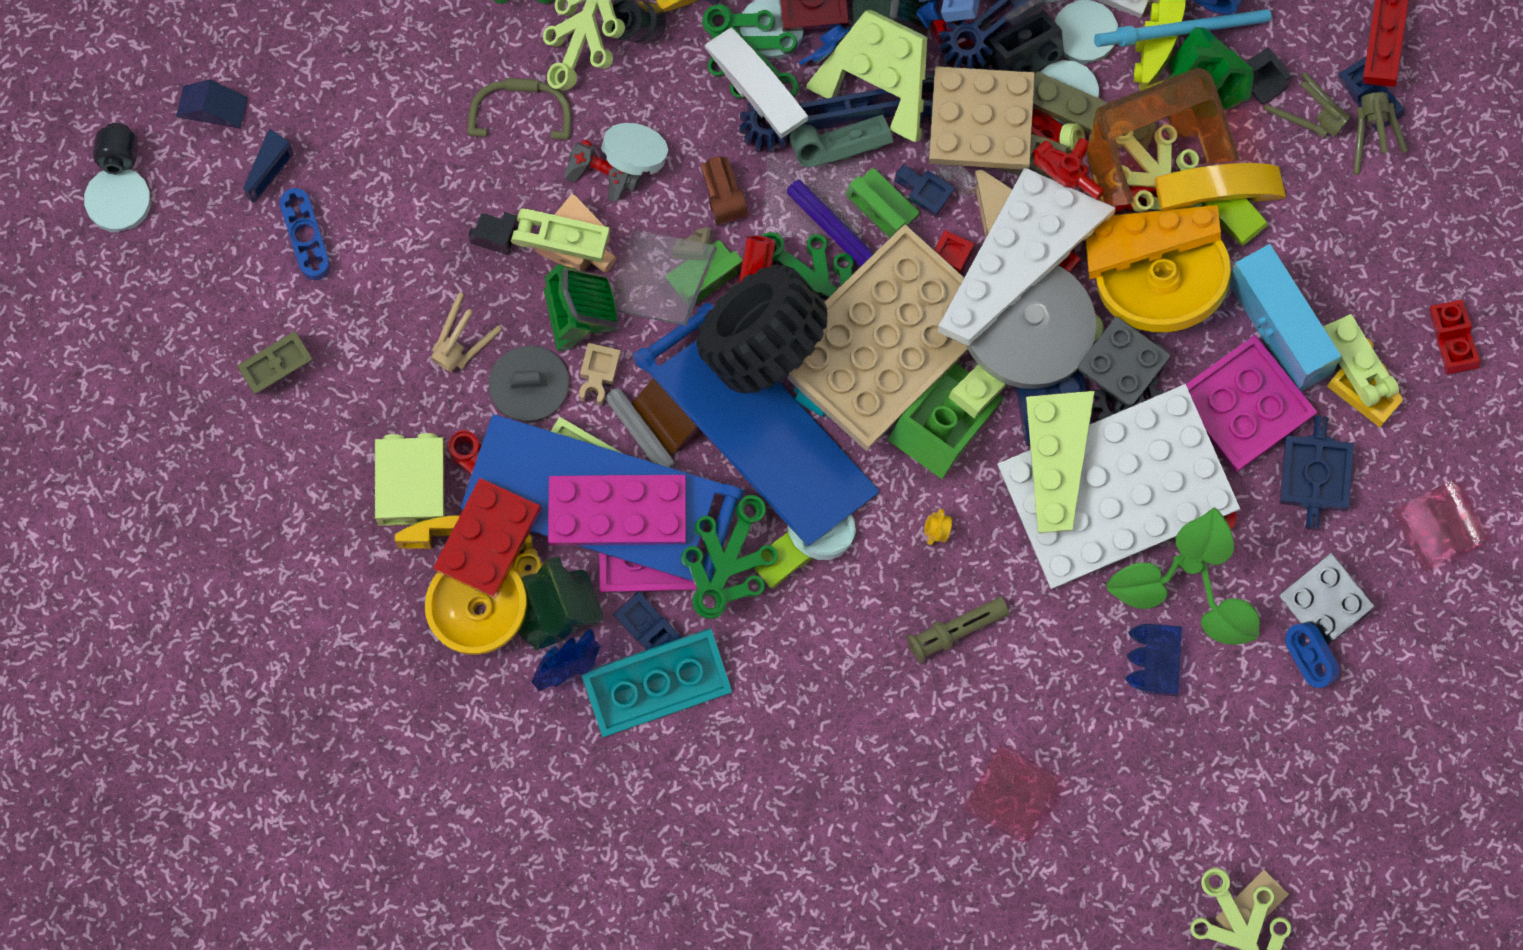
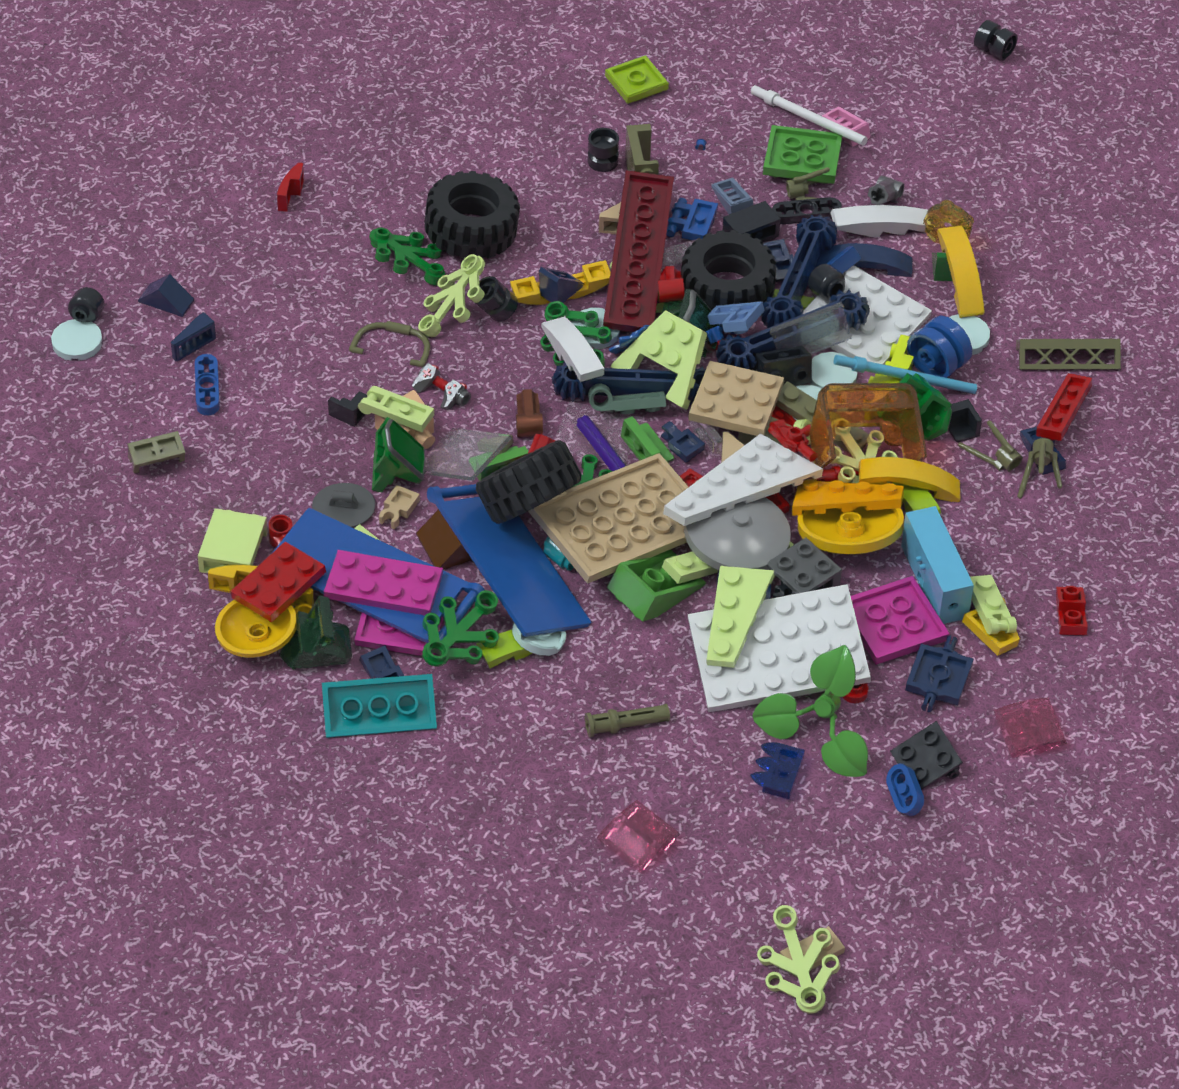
camera: 10 degrees right, 25 degrees down
(447, 351) = (290, 472): tan plant -> none
(570, 660) = (322, 672): clear blue plate -> none
(634, 148) = (469, 374): light aqua tile -> none
(639, 428) = (415, 541): light grey axle -> none
(937, 527) = (629, 650): yellow plate -> none

